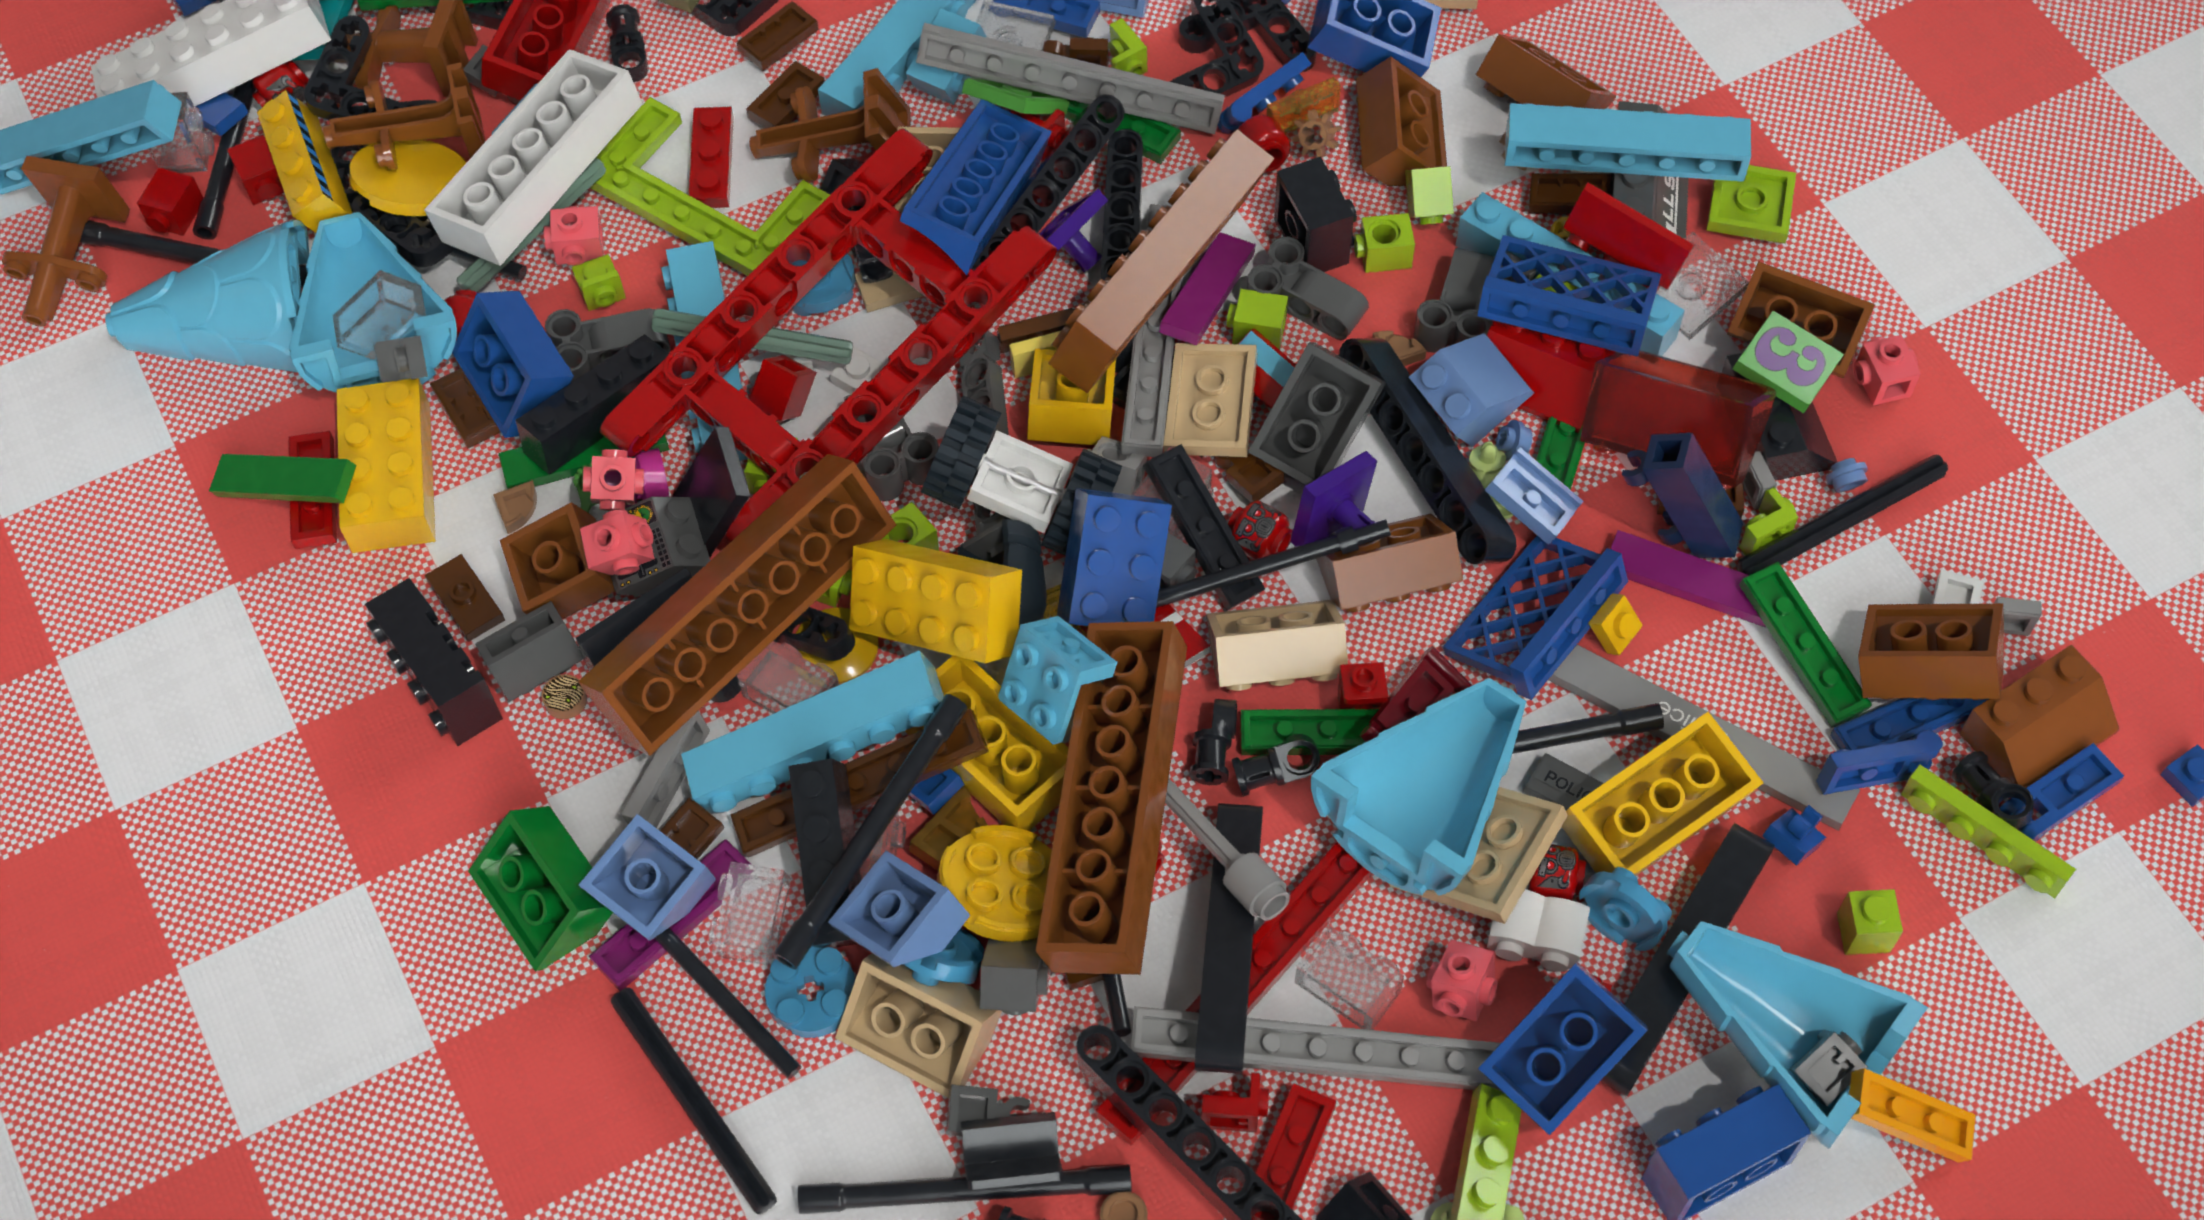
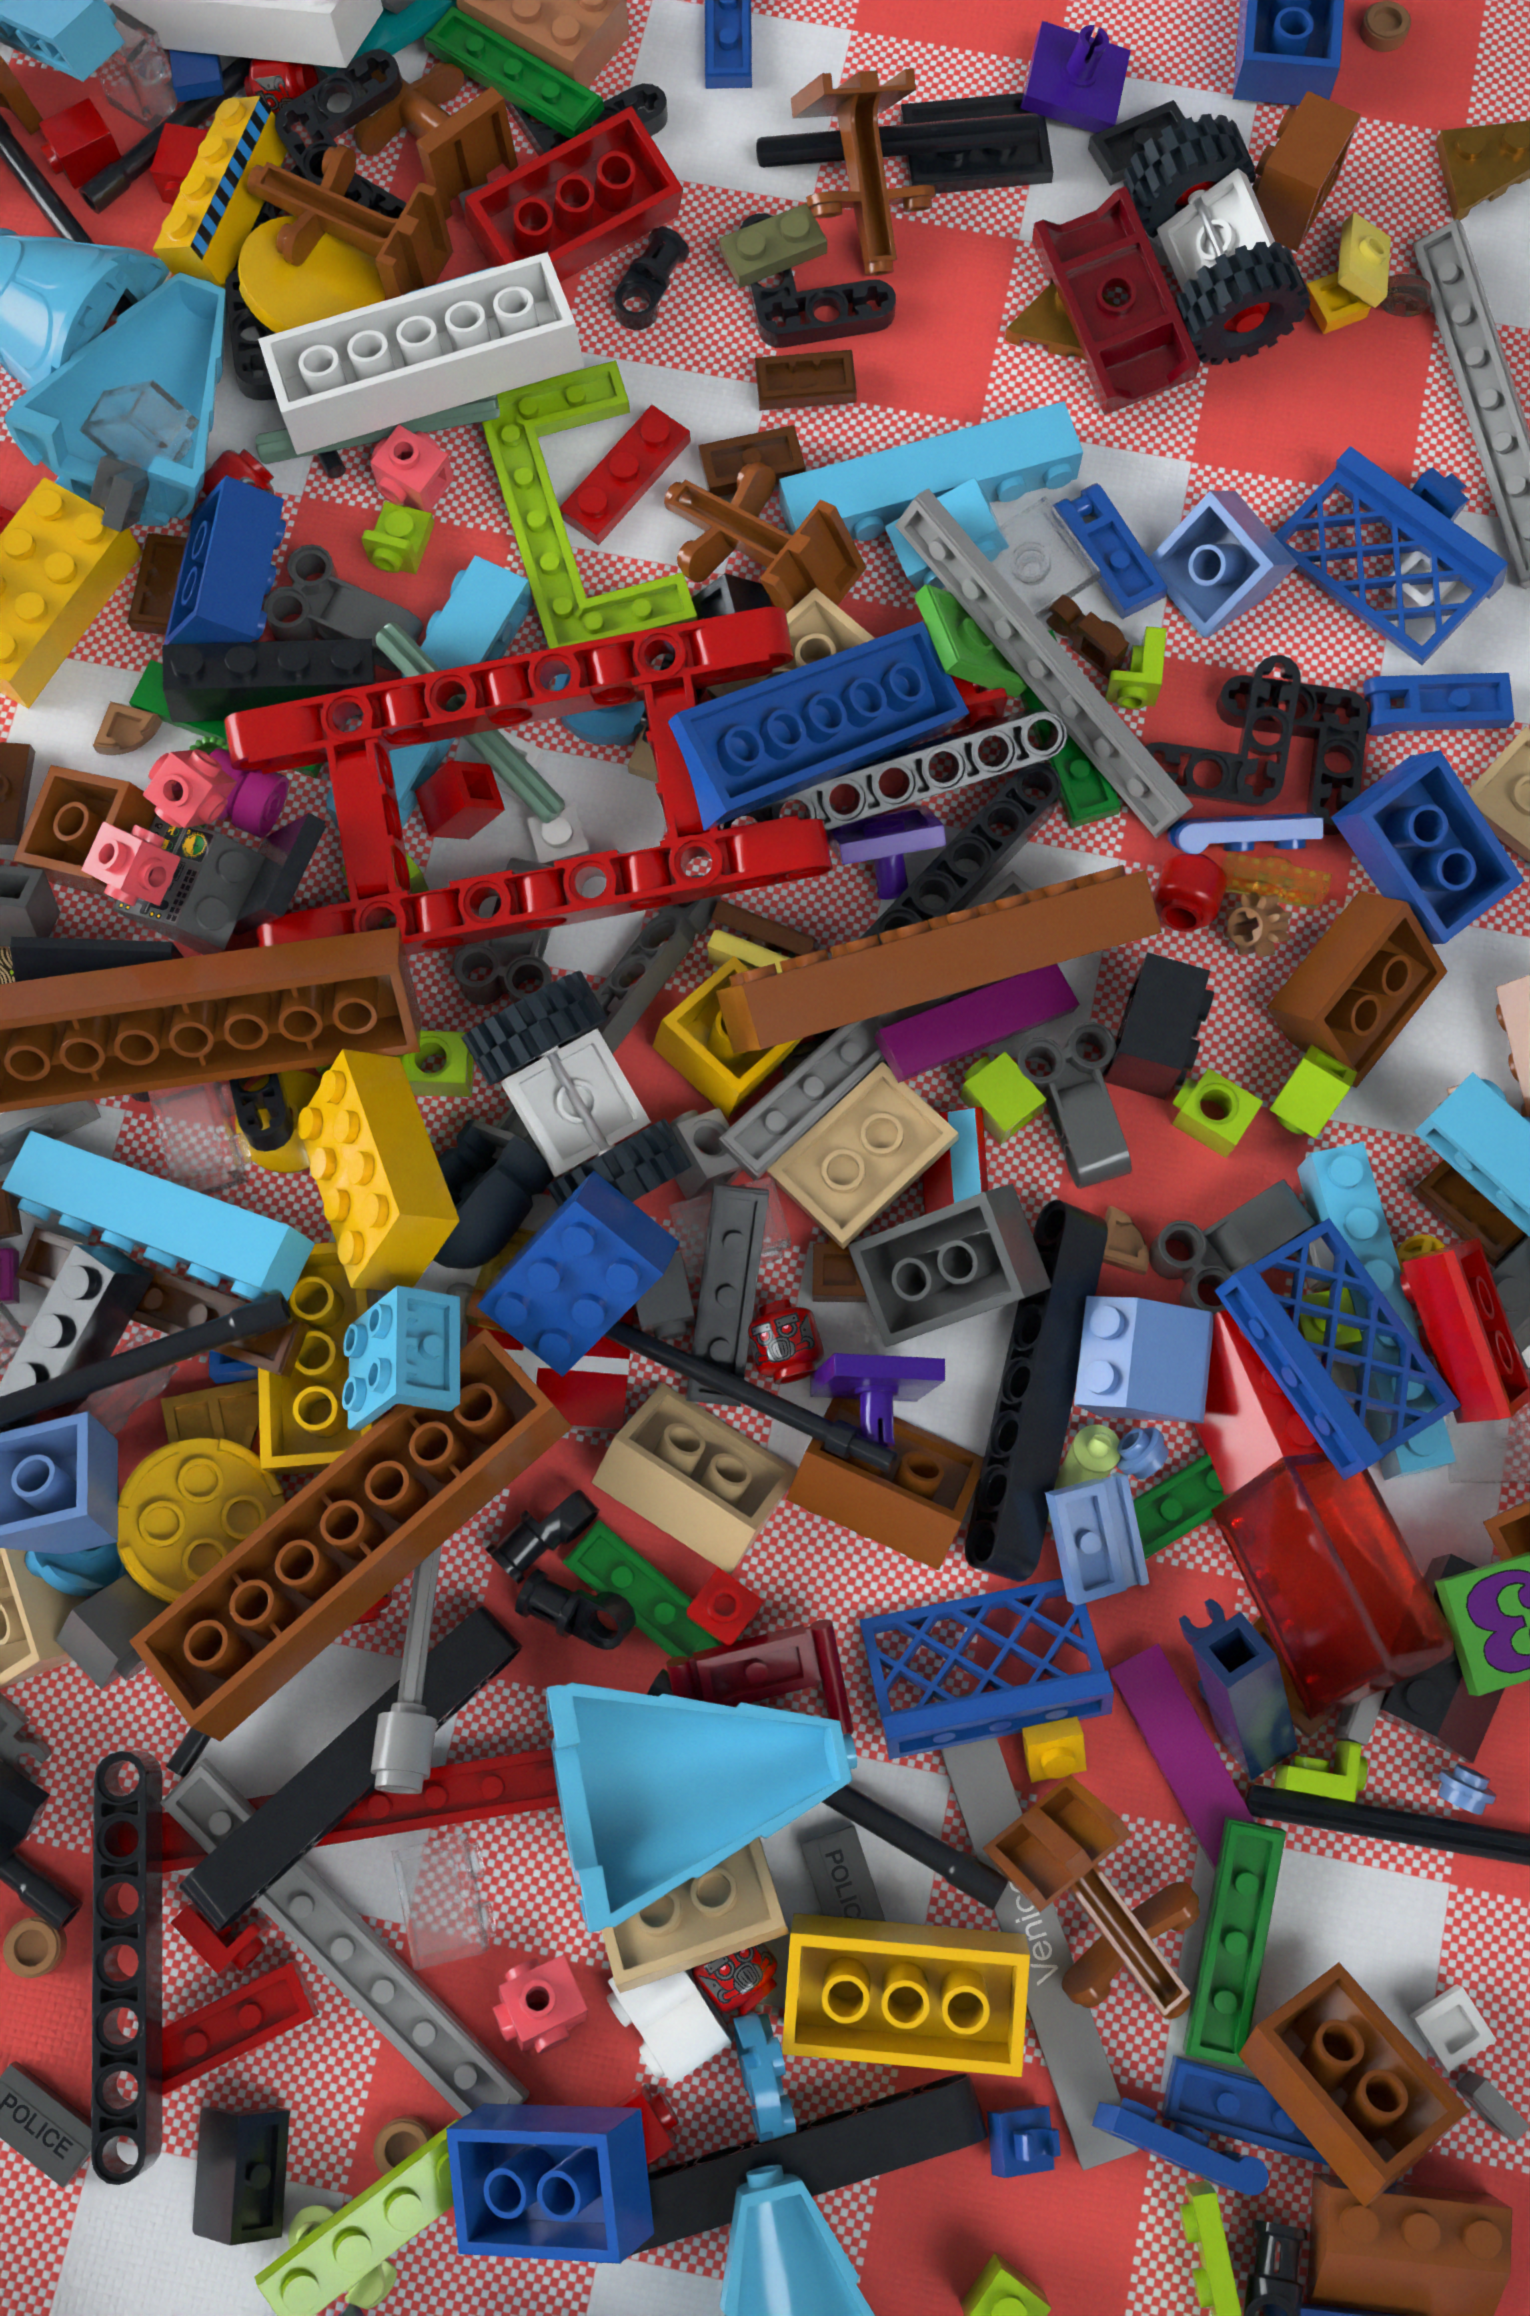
camera: 40 degrees right, 15 degrees up
(1450, 1135) = (399, 2140): none -> medium nougat tile
(1670, 655) = (1059, 1850): none -> dark orange piece

